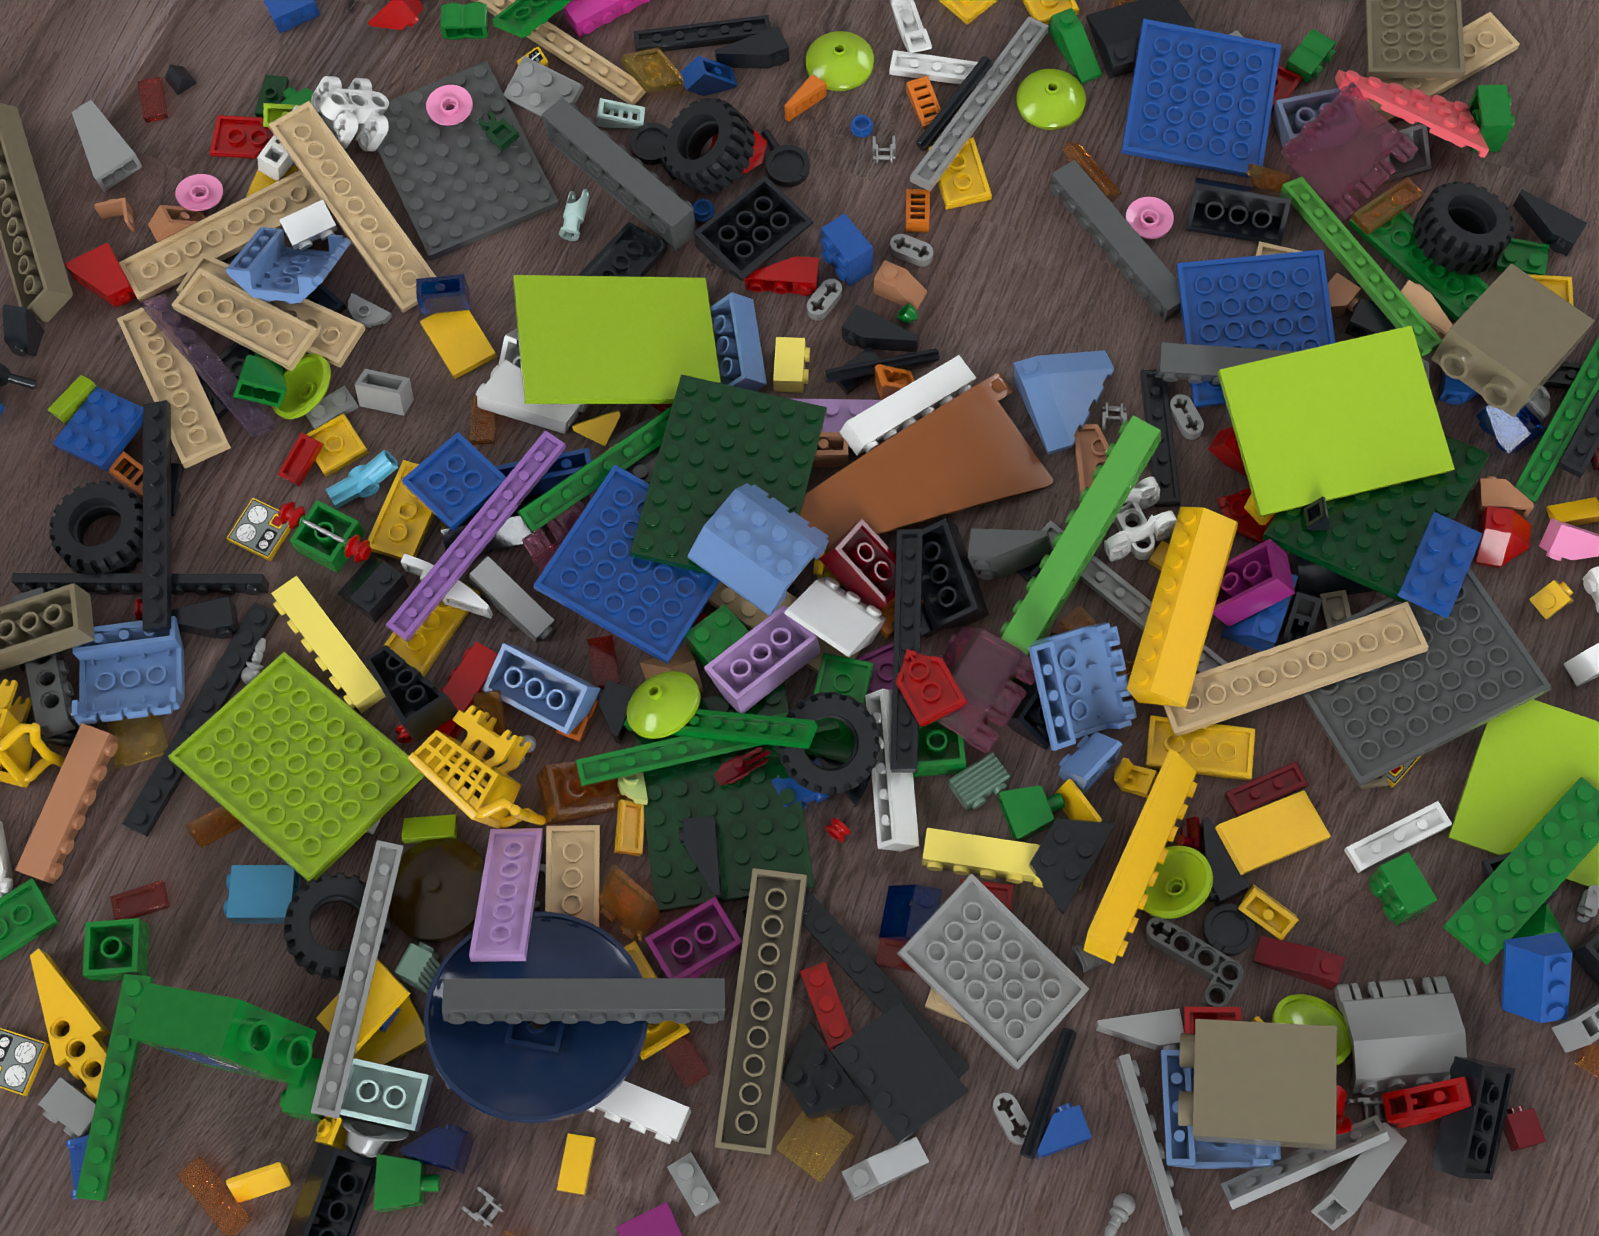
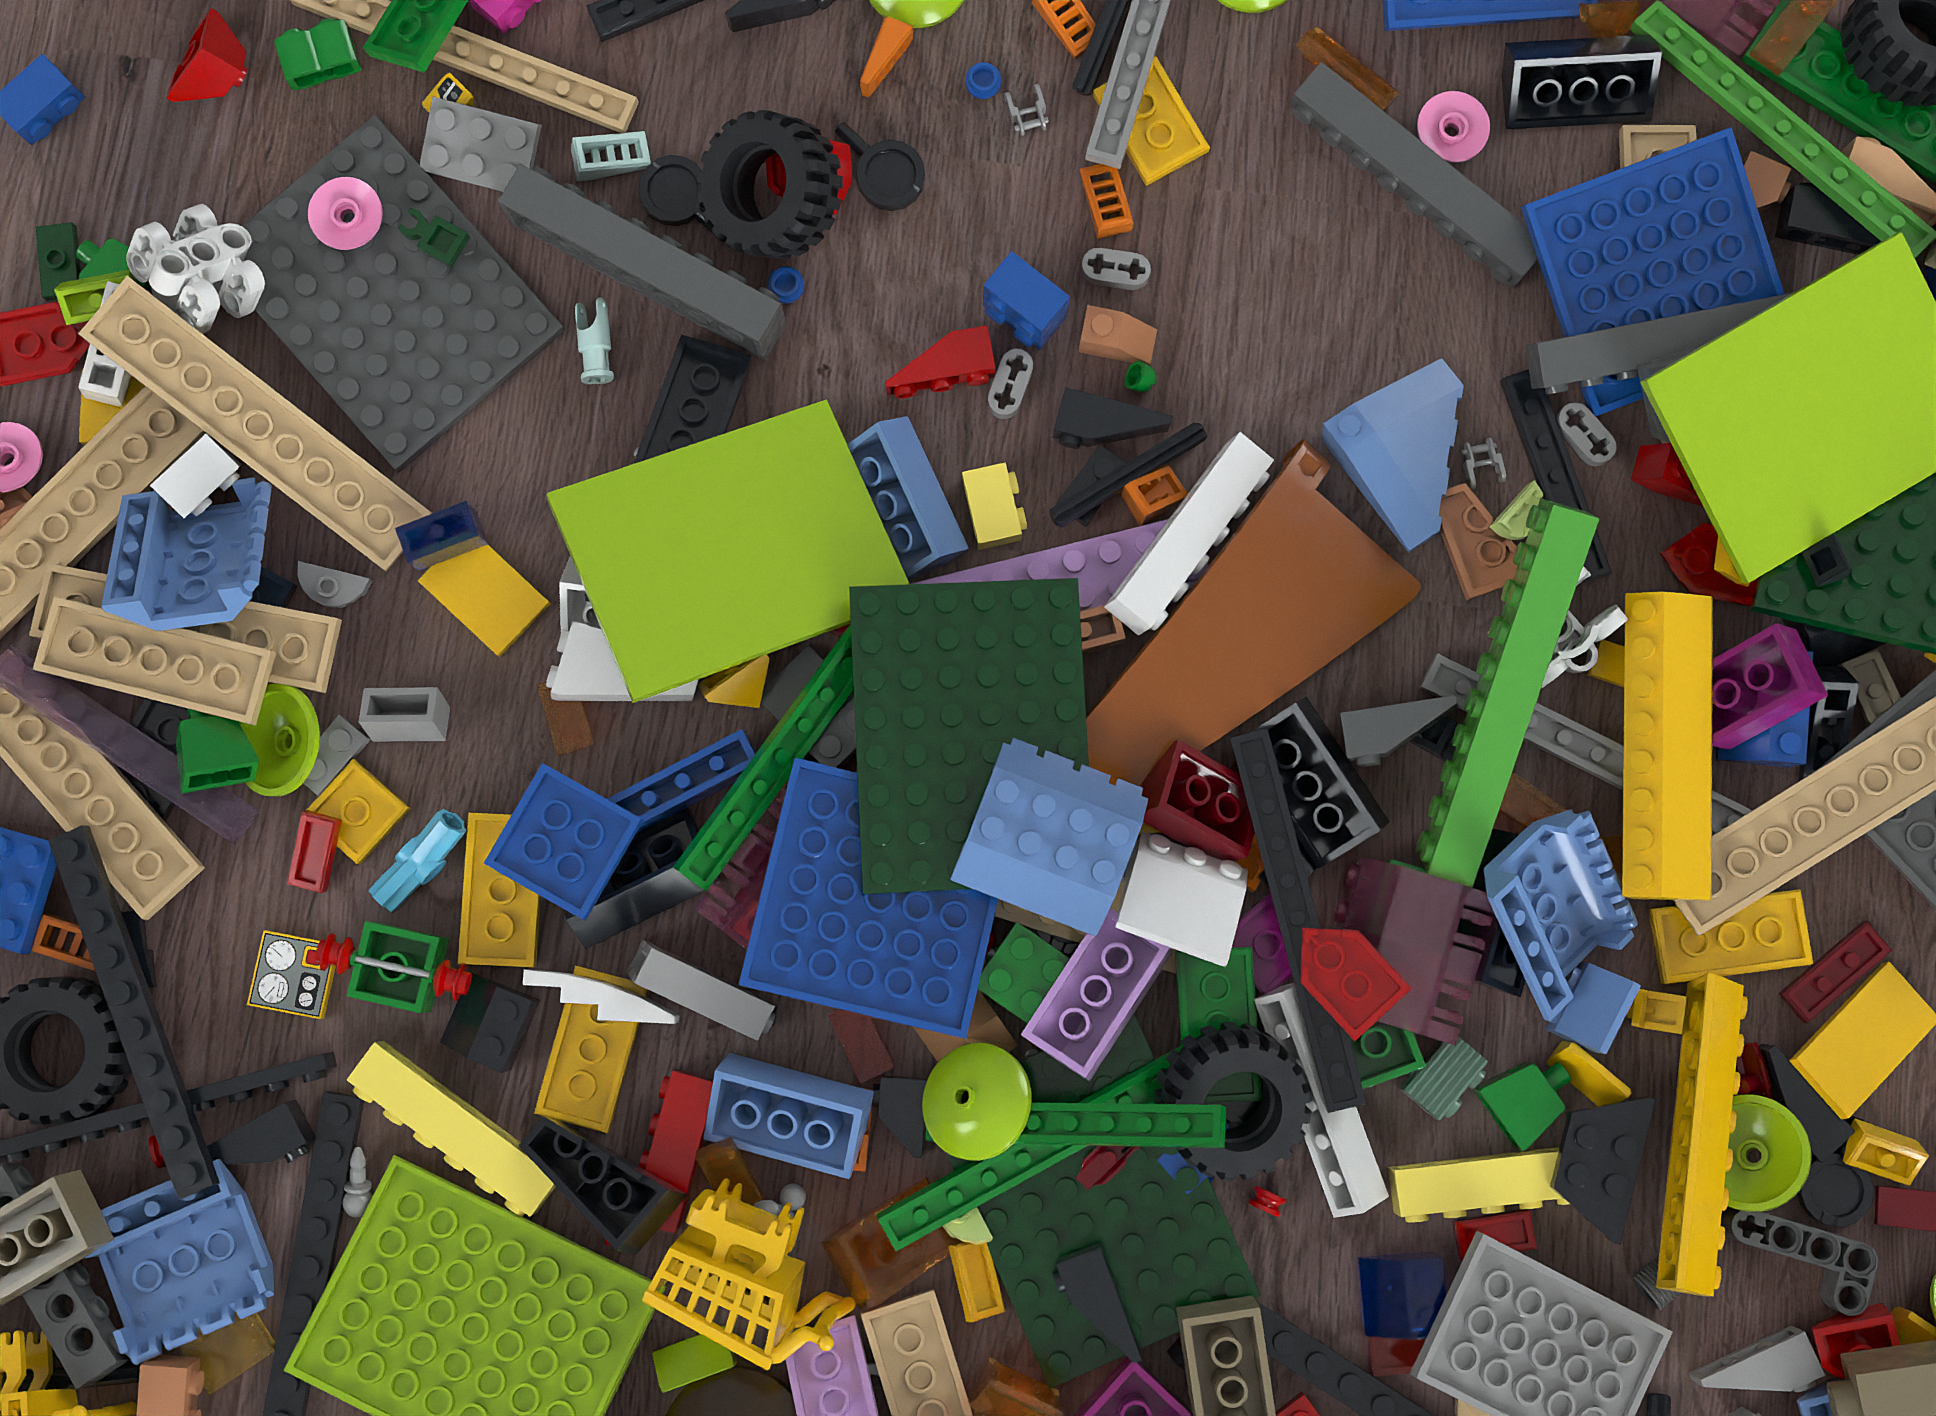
camera: 20 degrees left, 15 degrees up
(475, 536) = (624, 920): medium lavender plate -> none
(652, 70) = (638, 68): clear yellow plate -> none
(707, 77) = (726, 57): blue slope -> none
(751, 229) = (875, 305): black slope -> none

